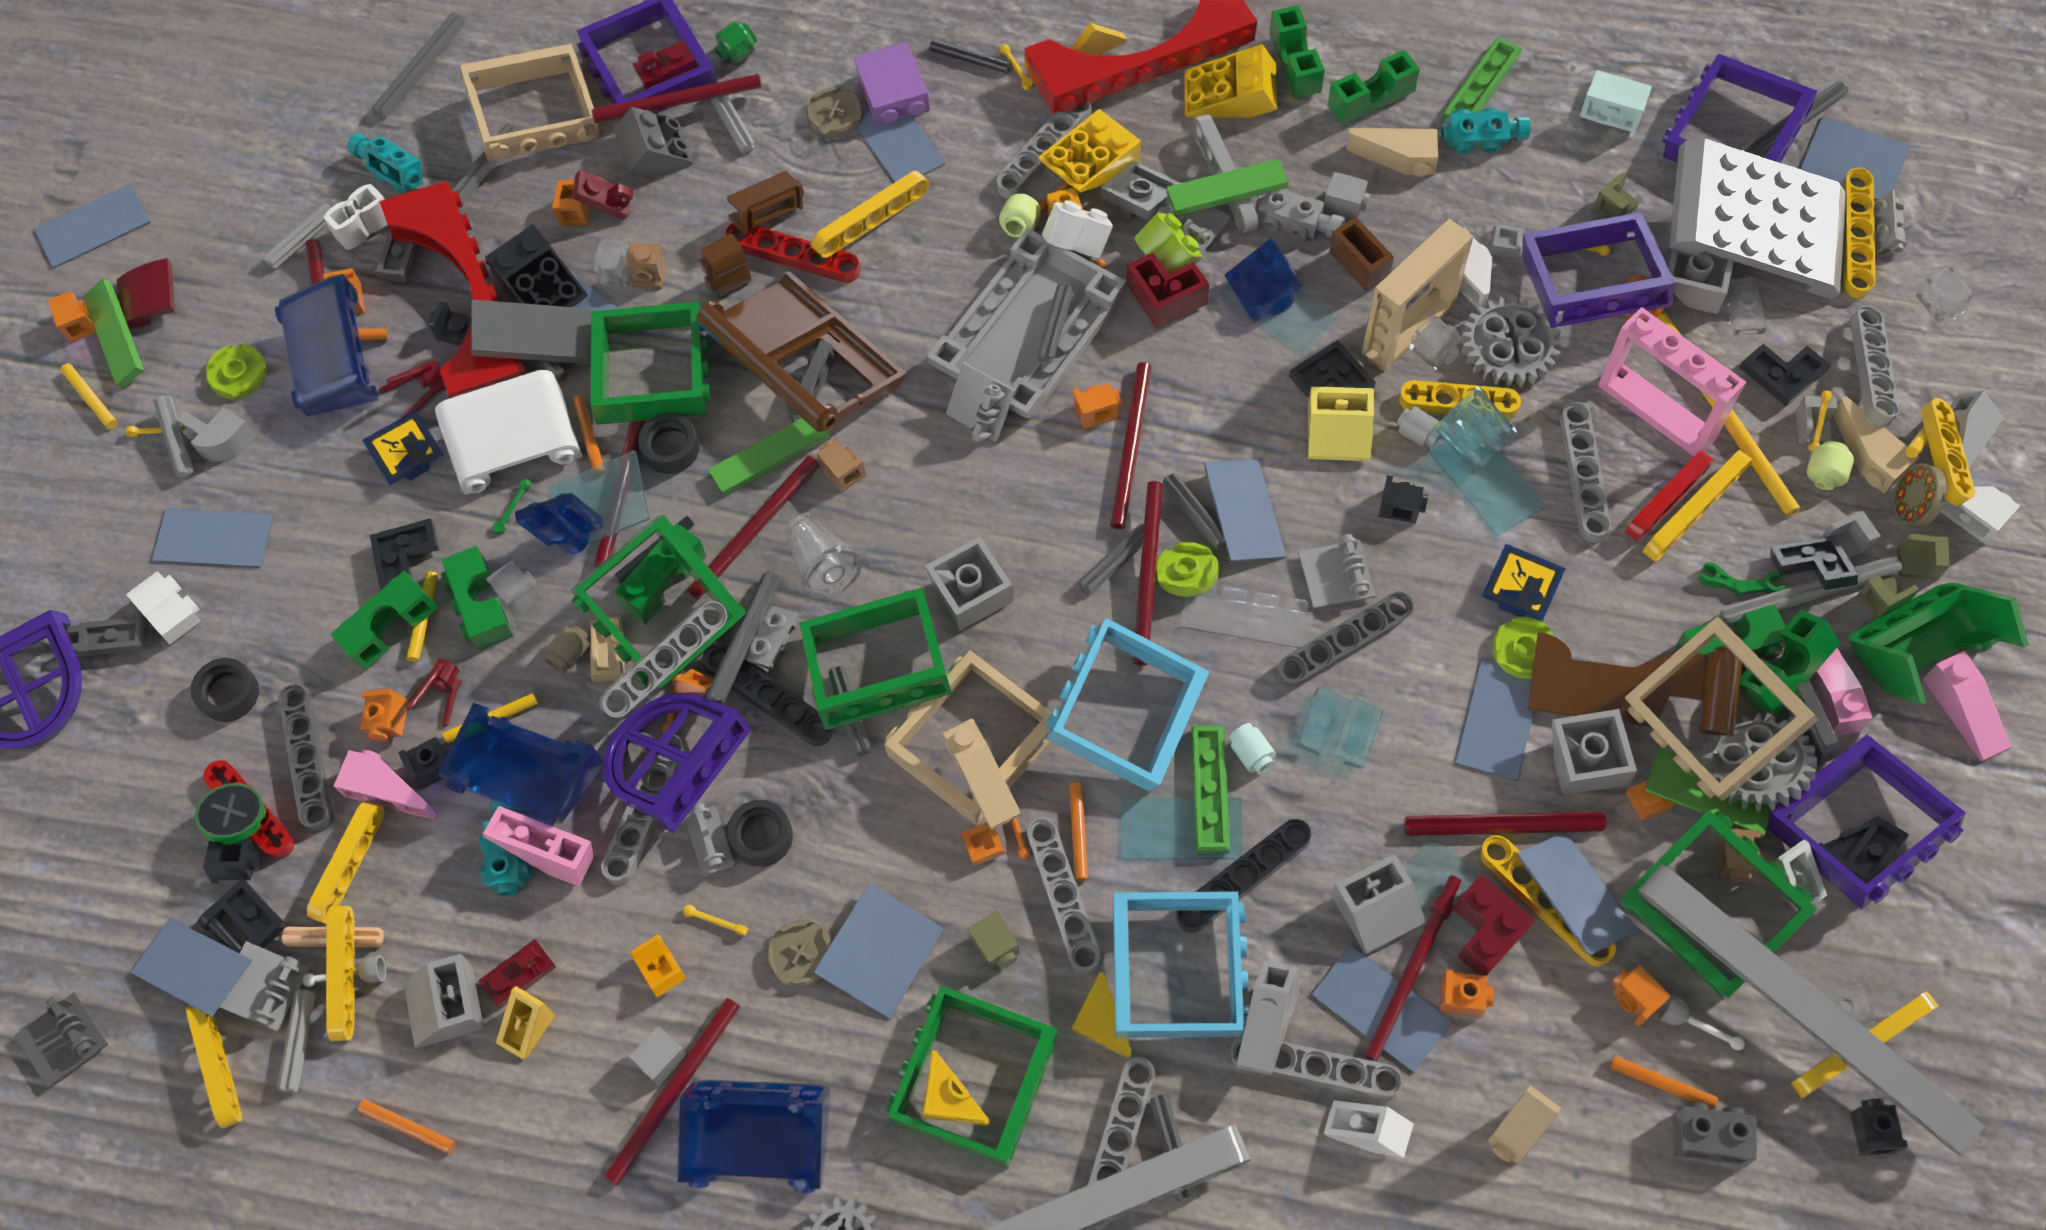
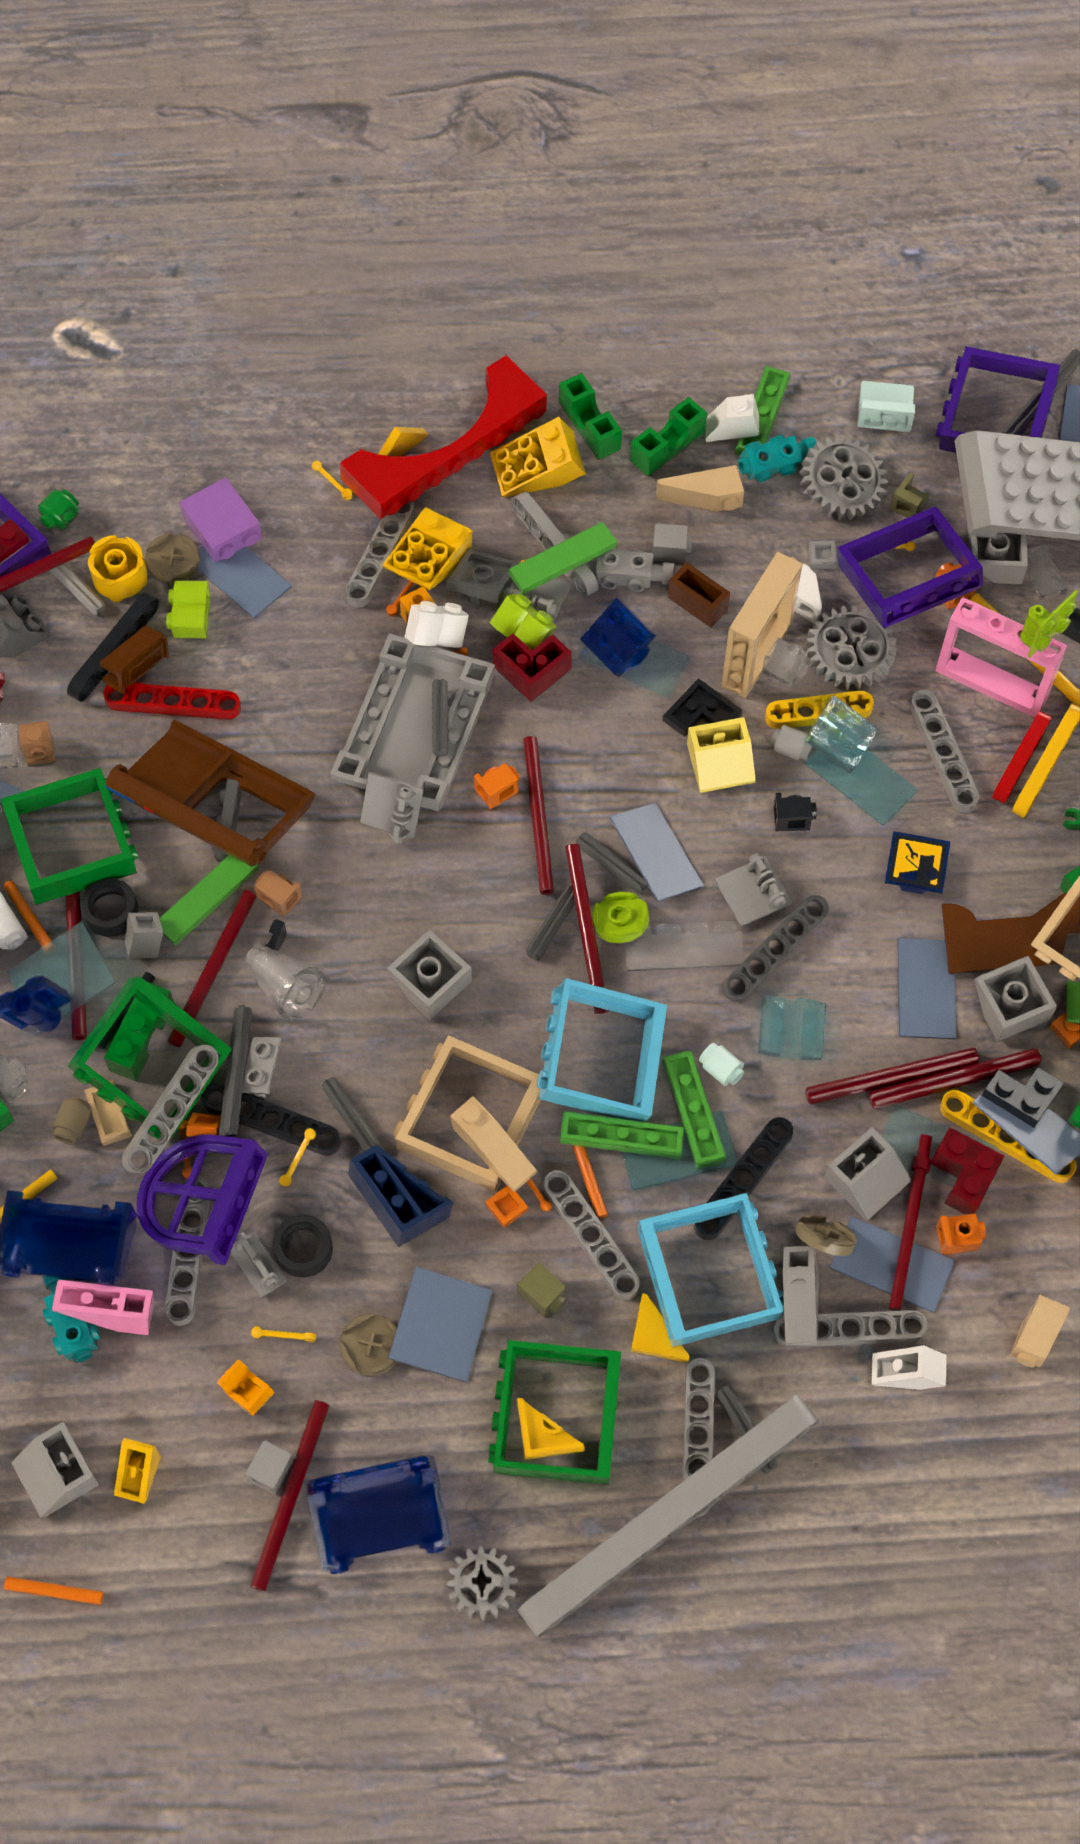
camera: 20 degrees left, 0 degrees up
(518, 971) = (113, 1427): dark red hinge -> none
(693, 478) = (143, 935): none -> light grey panel
(716, 210) = (131, 622): none -> black beam
(724, 265) = (115, 728): reddish brown brick -> none
(765, 760) = (286, 1180): none -> yellow hinge
(775, 109) = (117, 567): none -> yellow brick
(828, 509) = (279, 933): none -> black tile
(835, 165) = (189, 609): none -> lime brick
(870, 214) = (237, 650): yellow beam -> none
(870, 806) = (396, 1196): none -> dark blue wedge
(885, 695) = (383, 1095): green window -> none
(969, 56) = (283, 478): black bar -> none
(1018, 214) = (377, 622): yellowish green head -> none
(1125, 798) = (622, 1135): none -> bright green tile
(1313, 959) = (825, 1237): none -> dark tan tile
(1435, 803) = (891, 1075): none -> dark red axle
(1448, 83) = (733, 419): none -> white slope
(1516, 644) = (924, 919): lime tile -> none
(1549, 165) = (856, 462): none -> light grey gear
(1574, 867) = (1023, 1101): none -> plate
(1722, 353) = (1042, 624): none -> lime hinge

